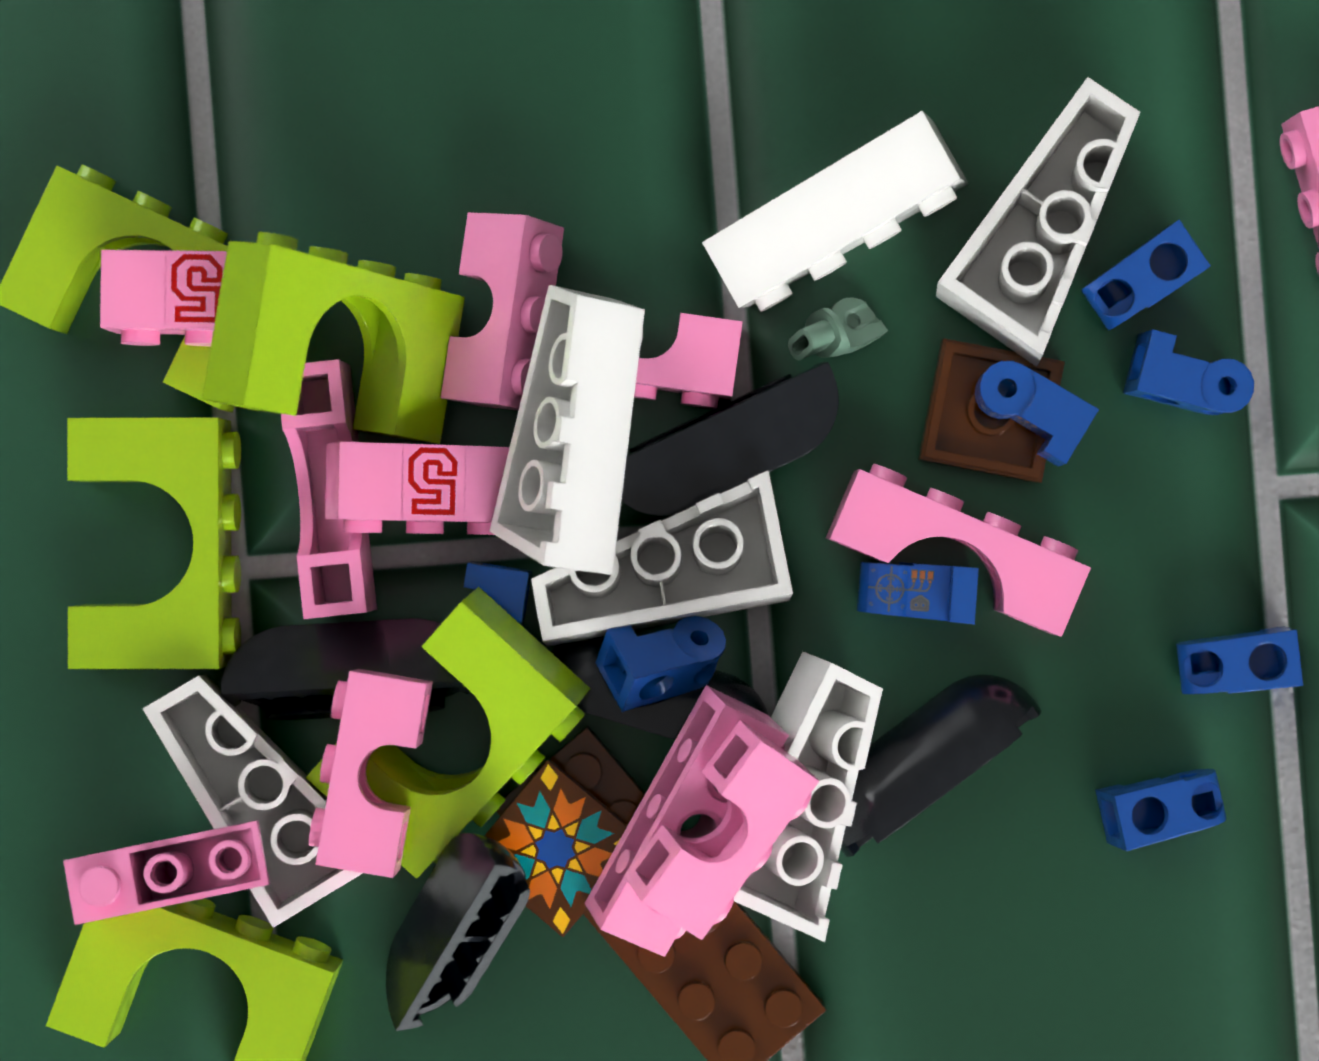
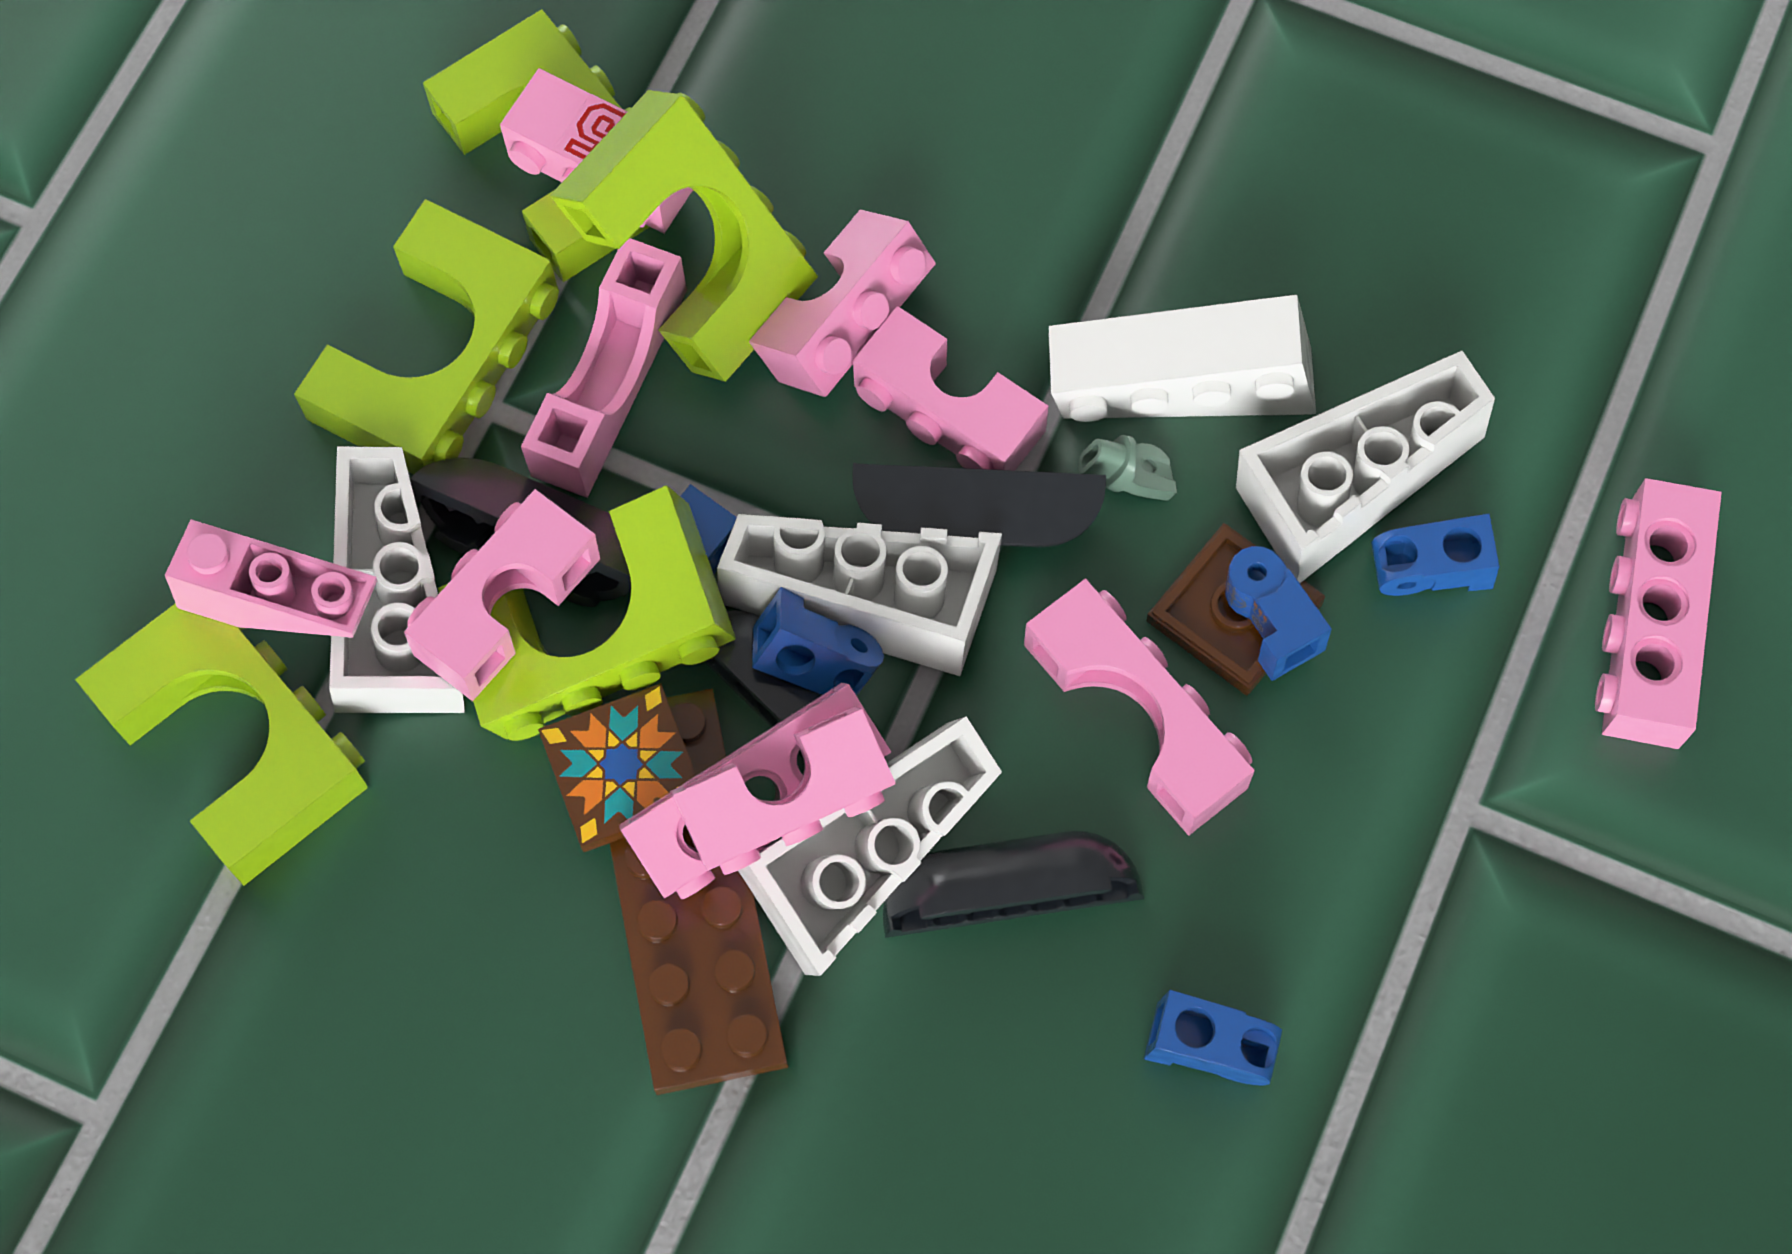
camera: 30 degrees right, 20 degrees down
(413, 485) = (693, 400): bright pink brick -> none
(454, 928) = (489, 788): black brick -> none
(572, 433) = (847, 400): white wedge -> none
(919, 591) = (1084, 724): blue leg -> none
(1184, 380) = (1431, 667): blue leg -> none
(1241, 662) = (1356, 941): blue leg -> none

